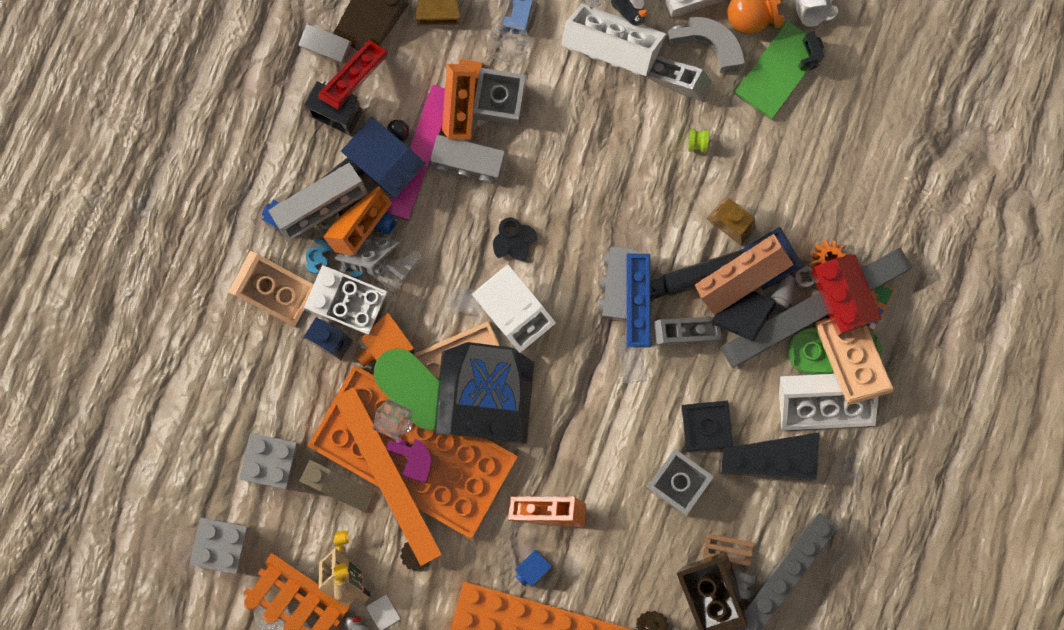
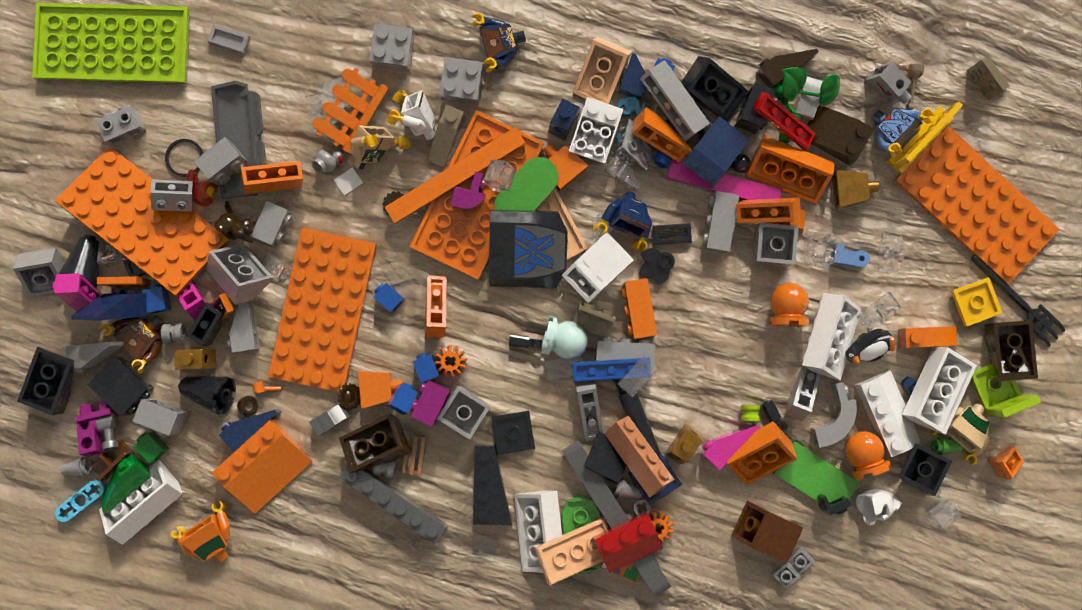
camera: 85 degrees right, 5 degrees up
(224, 413) = (498, 41): none -> torso
(285, 76) = (771, 70): none -> dark brown slope
(286, 253) = (632, 84): none -> dark blue slope
(303, 156) = (713, 88): none -> black slope
(306, 519) = (415, 113): none -> white torso
(311, 61) = (794, 80): none -> green plant
(409, 72) = (790, 169): none -> orange slope
(454, 267) = (628, 216): none -> dark blue torso
(477, 238) = (674, 241): none -> black tile
(566, 263) = (639, 308): none -> orange brick
(573, 85) = (789, 304): none -> orange tile
(576, 319) = (593, 319): none -> dark tan bracket
(597, 405) = (524, 341): none -> black bar
(598, 354) = (565, 339): none -> light aqua tile
(621, 527) = (426, 367): none -> blue brick
(624, 497) = (451, 368): none -> orange gear
(643, 588) = (376, 387): none -> orange torso
(647, 268) = (638, 376): none -> clear tile
(659, 556) = (402, 398): none -> blue brick
(666, 522) = (430, 403): none -> magenta brick
(703, 114) = (772, 413): none -> black bar
(737, 172) = (723, 447): none -> dark pink slope
(748, 129) = (762, 454): none -> orange slope
(840, 131) = (767, 532): none -> reddish brown slope
(883, 105) = (790, 572): none -> light grey slope

